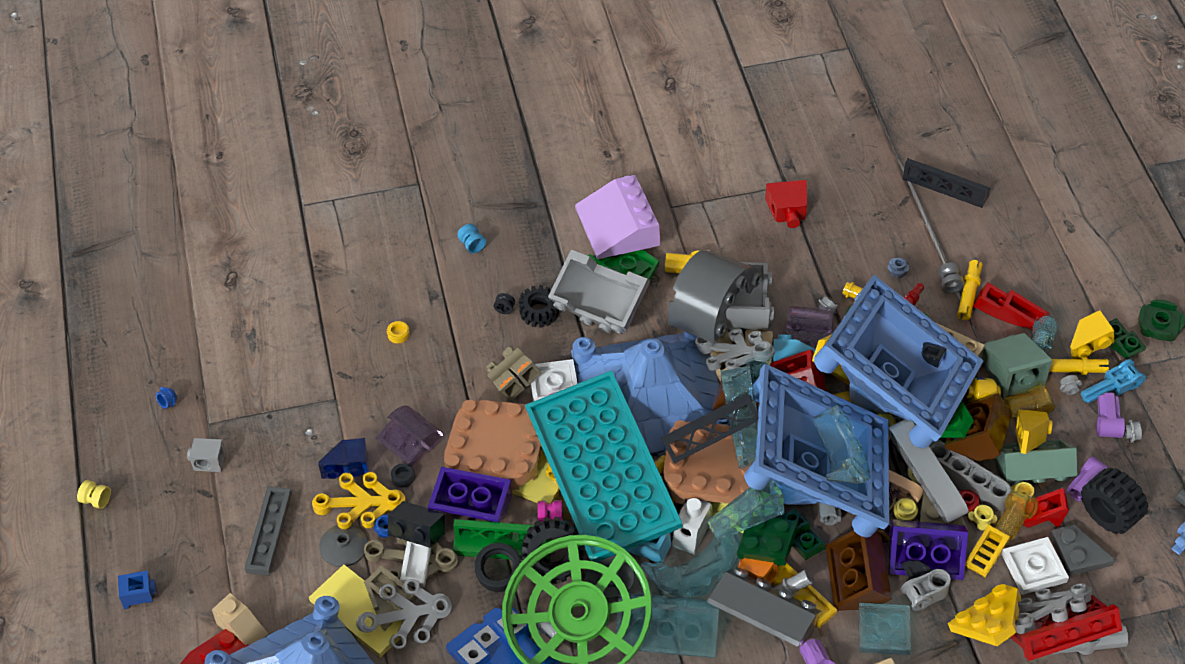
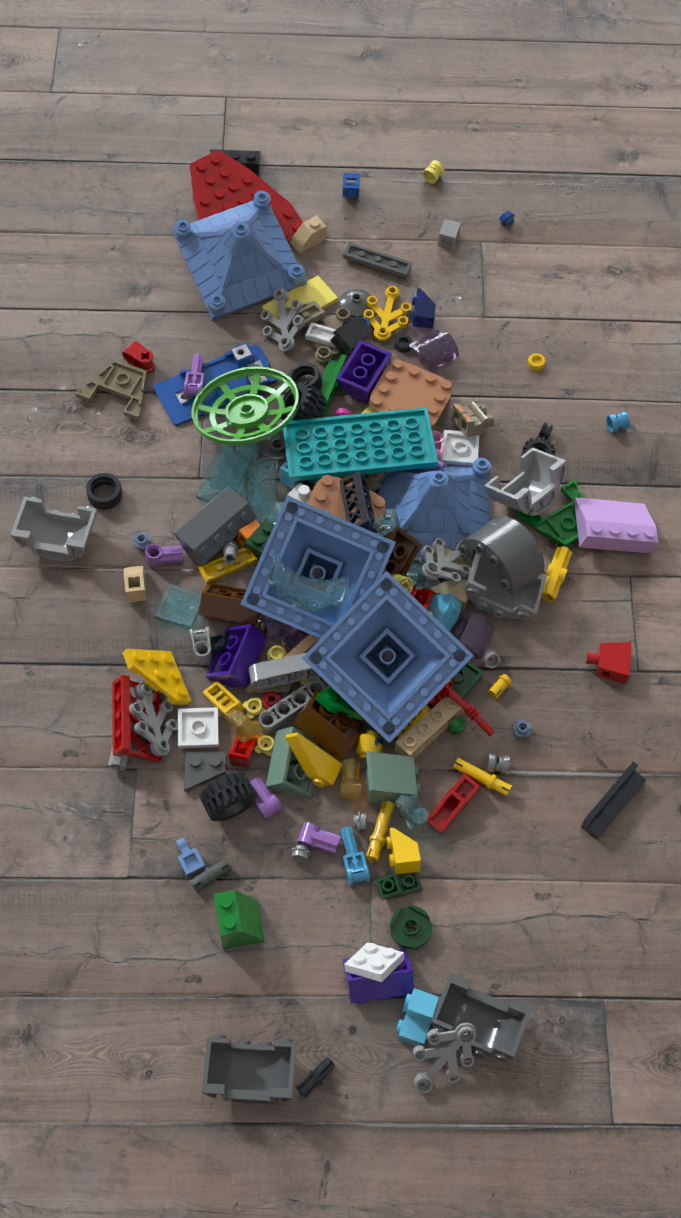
camera: 100 degrees right, 10 degrees up
(932, 354) = (393, 692): black tile -> none

